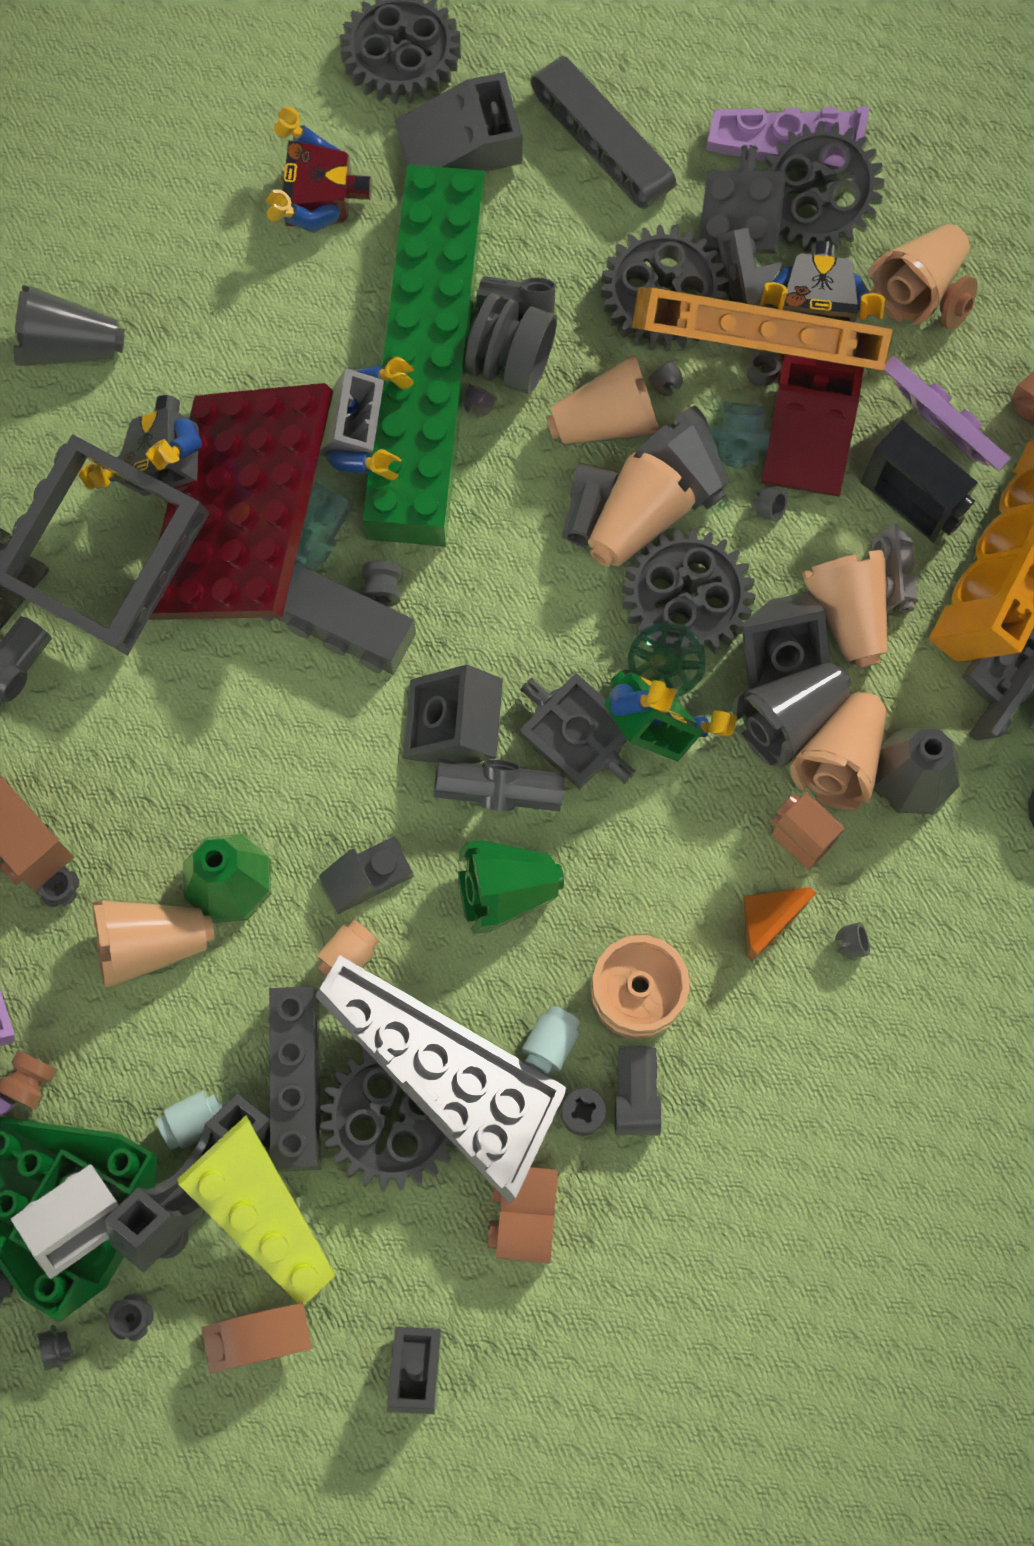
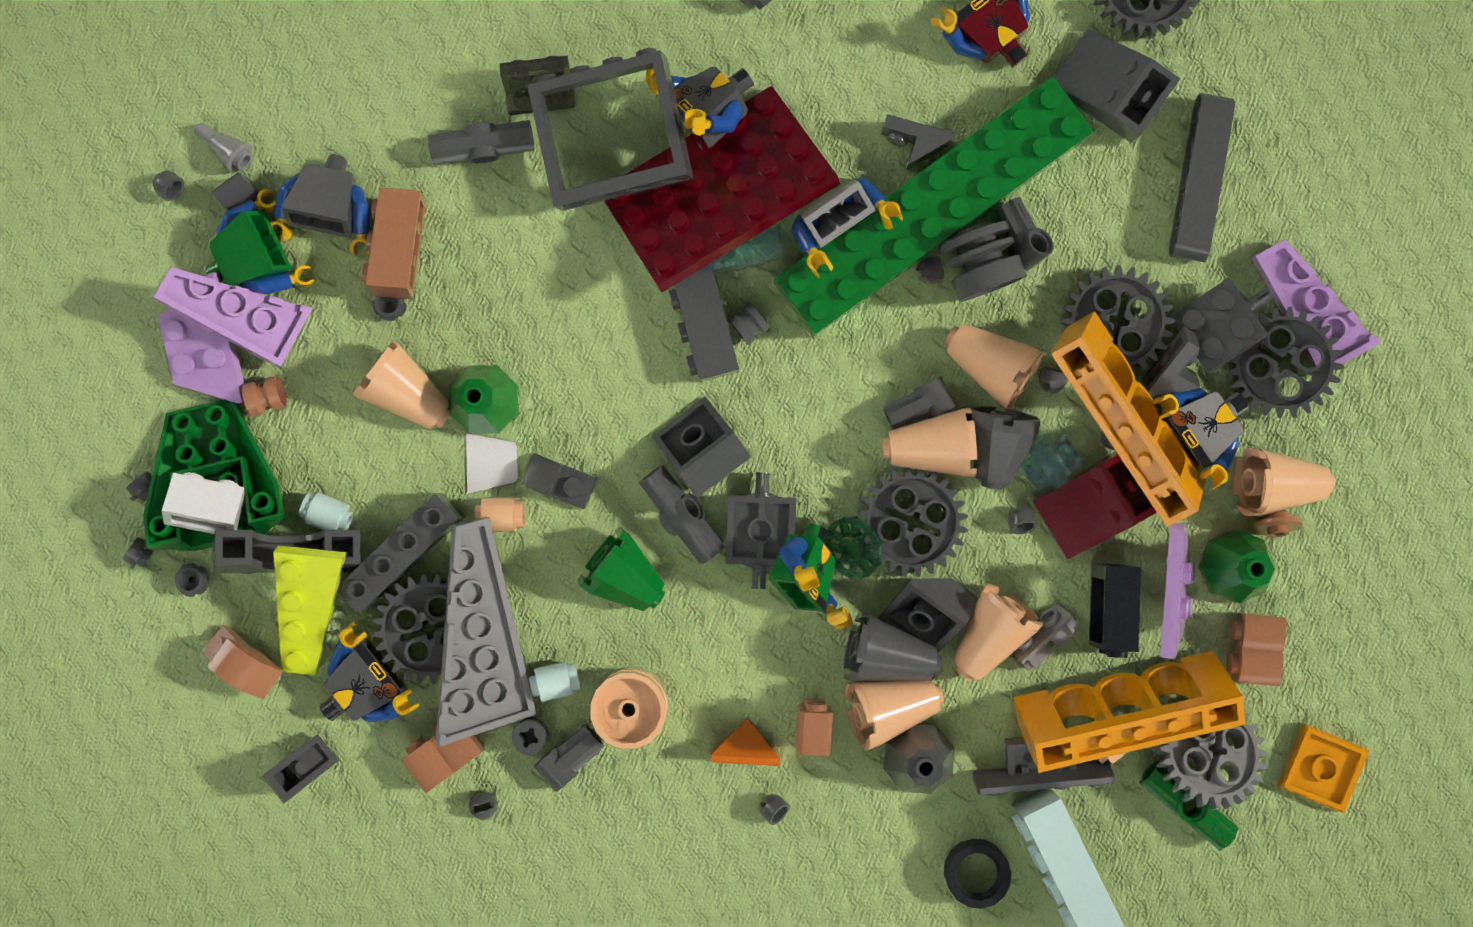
camera: 55 degrees right, 15 degrees up
(289, 926) = (490, 462): none -> white sticker
(358, 312) = (925, 139): none -> dark grey slope
(386, 1230) = (363, 683): none -> torso
(602, 1218) = (481, 798): none -> dark grey hinge
(971, 360) = (1237, 566): none -> green cone

